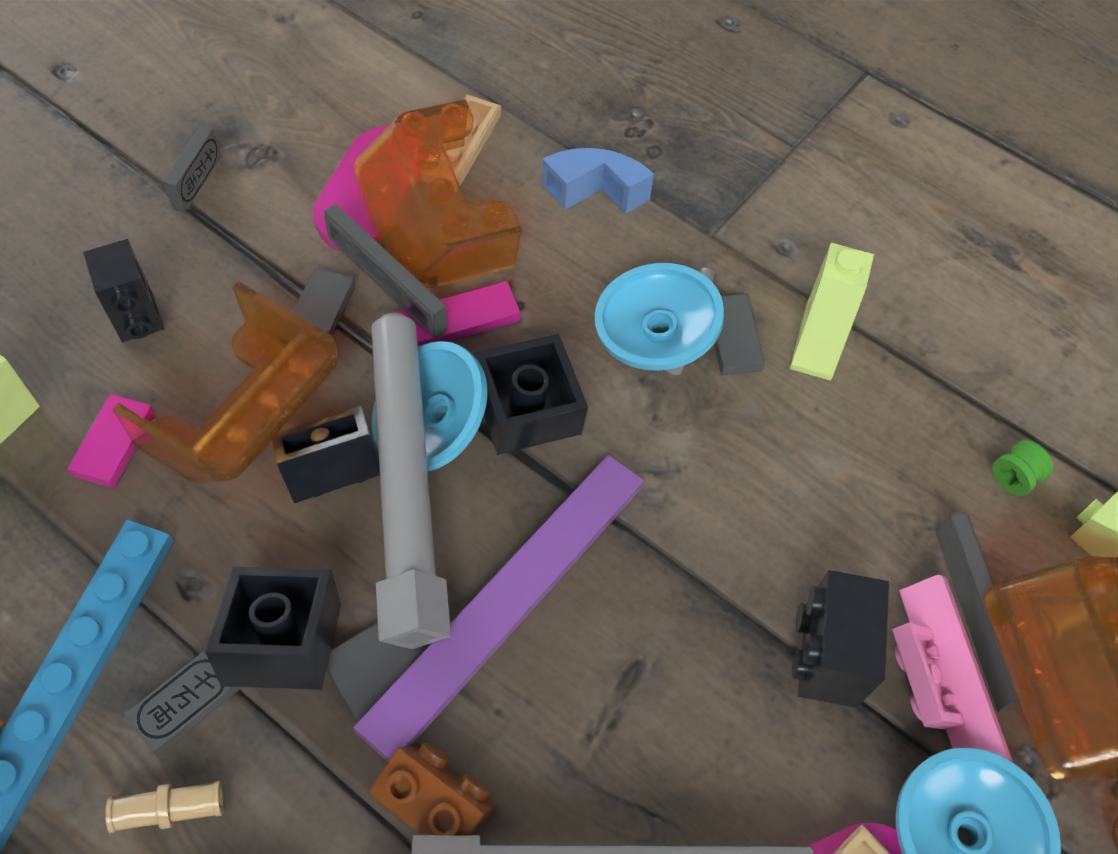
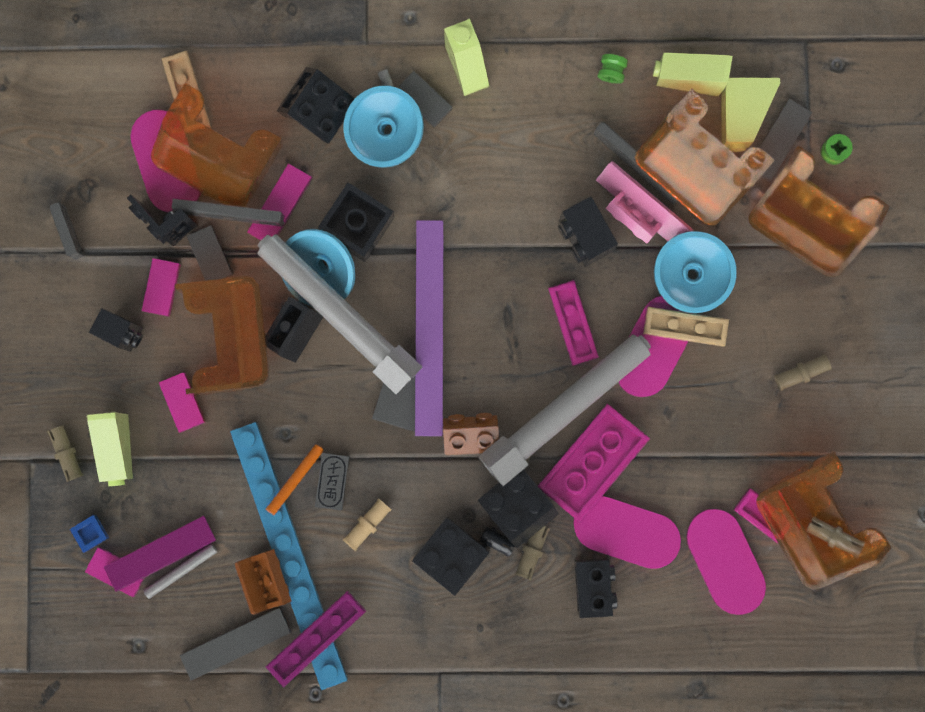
camera: 30 degrees left, 25 degrees up
(130, 651) = (294, 479): none -> orange bar
(218, 306) = (161, 287): none -> dark pink tile
(275, 628) = (346, 423): black brick -> none
(306, 232) = (174, 226): none -> black bracket
(584, 171) = (269, 63): medium blue brick -> none
(597, 246) = (316, 104): none -> black bracket
(721, 763) = (573, 323): none -> dark pink tile

